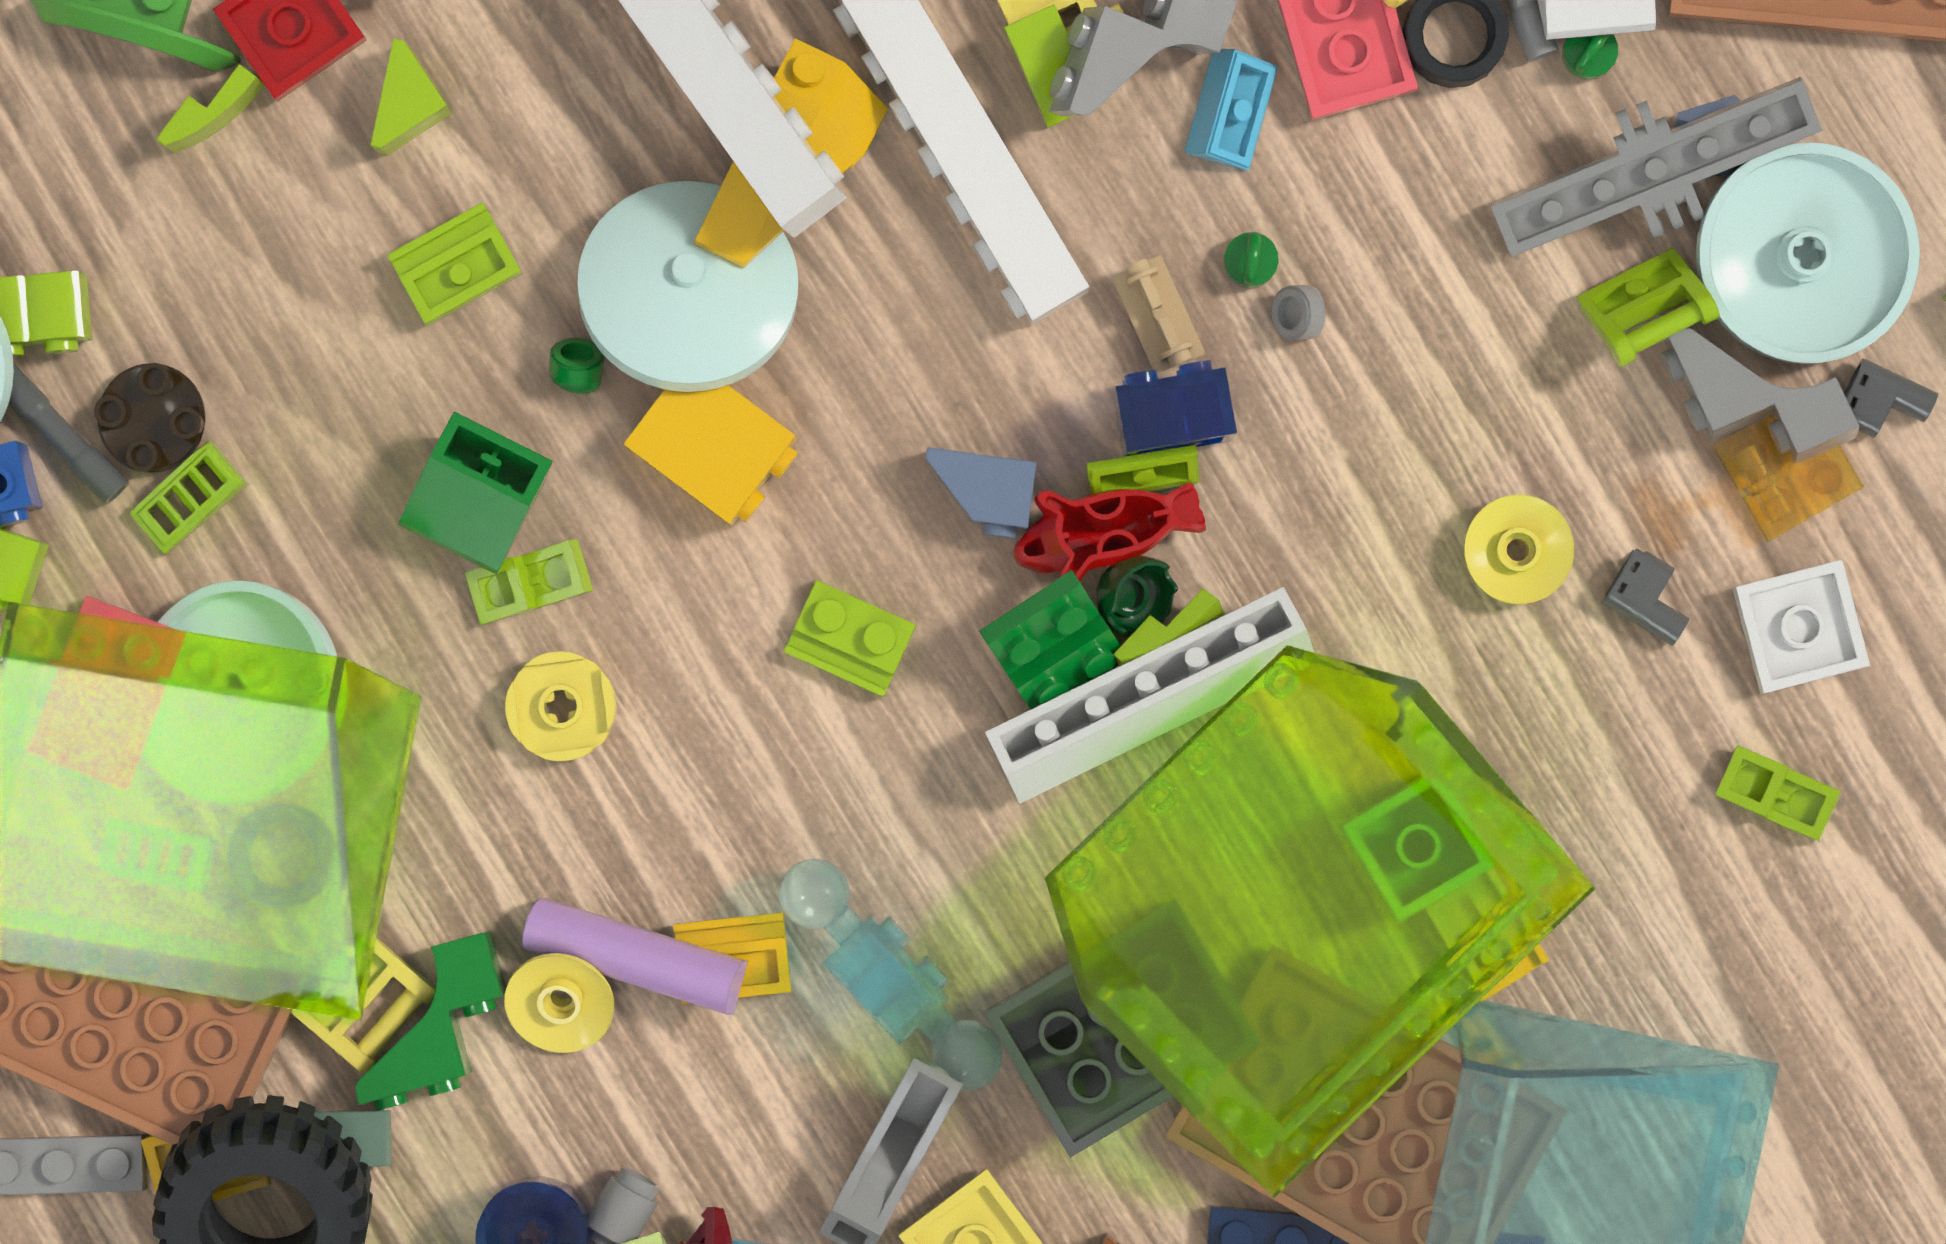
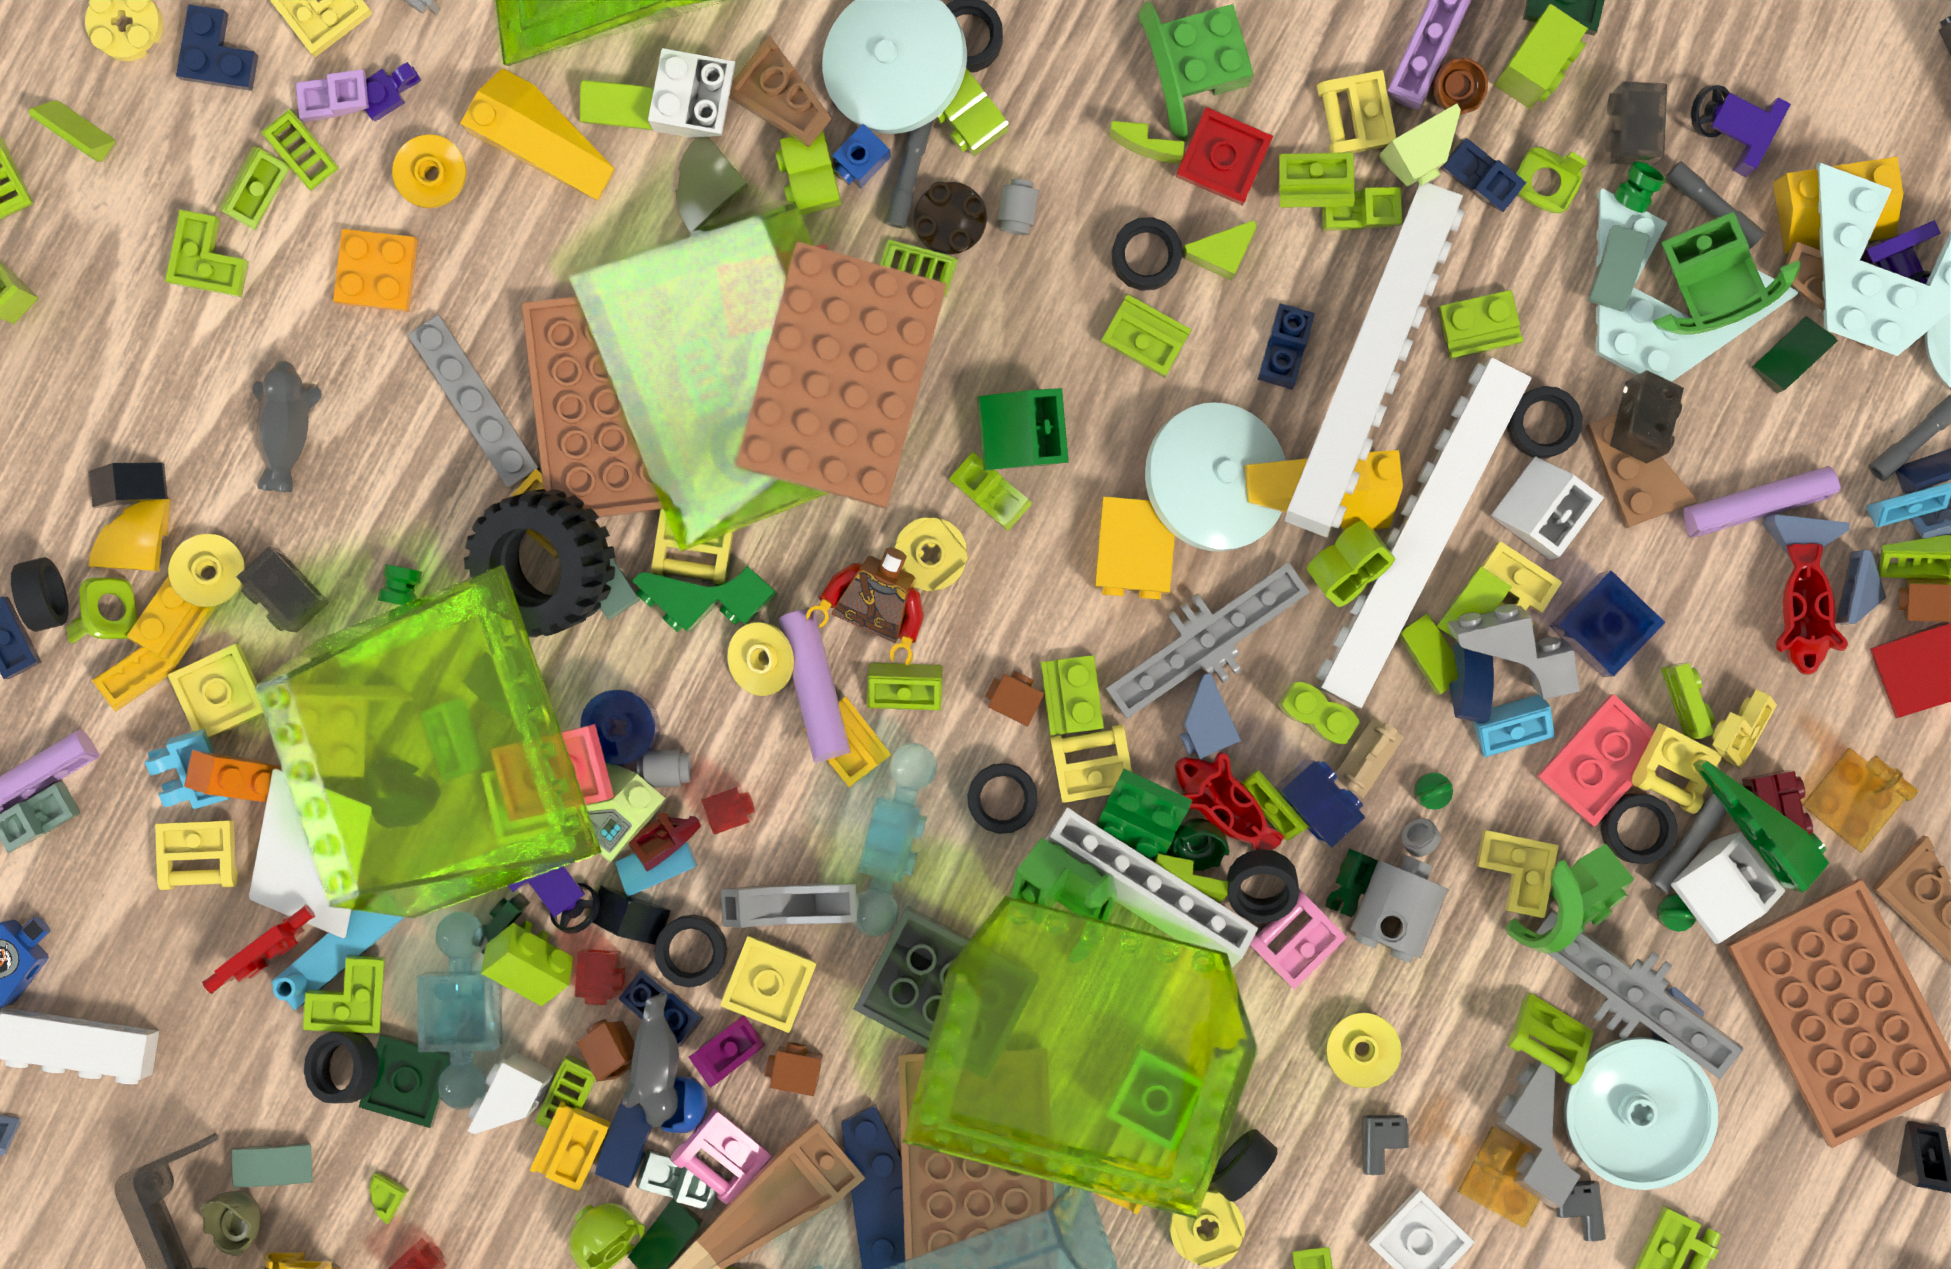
camera: 60 degrees right, 0 degrees up
(191, 323) = (1018, 207): none -> light grey brick
(263, 679) = (841, 375): none -> nougat plate
(310, 193) = (1156, 227): none -> black tyre
(576, 365) = (1131, 441): green tile -> none
(576, 808) = (877, 599): none -> torso
(578, 96) = (1286, 346): none -> dark blue slope
(708, 842) = (904, 686): none -> lime slope
(724, 1160) = (728, 809): none -> clear red brick
(807, 712) = (1014, 697): none -> dark orange brick
(885, 425) = (1207, 640): none -> light grey hinge
(894, 834) = (1021, 818): none -> black tyre
(900, 187) = (1350, 563): none -> lime brick
(966, 678) = (1093, 776): none -> light yellow plate
(1061, 802) = (1054, 876): none -> bright green piece
(1076, 338) = (1326, 719): none -> lime brick
(1079, 154) = (1430, 653): none -> lime slope
(1151, 128) = (1474, 688): none -> dark blue slope
(1265, 567) = (1269, 908): none -> black tyre
(1299, 425) = (1354, 879): none -> dark green plate
(1347, 542) = (1305, 948): none -> bright pink plate
(1356, 377) = (1402, 894): none -> light grey cylinder
(1419, 198) = (1530, 868): none -> light yellow plate
(1493, 162) = (1582, 896): none -> bright green piece
(1568, 789) = (1243, 1165): none -> black tyre
(1645, 864) = (1225, 1239): none -> light yellow plate

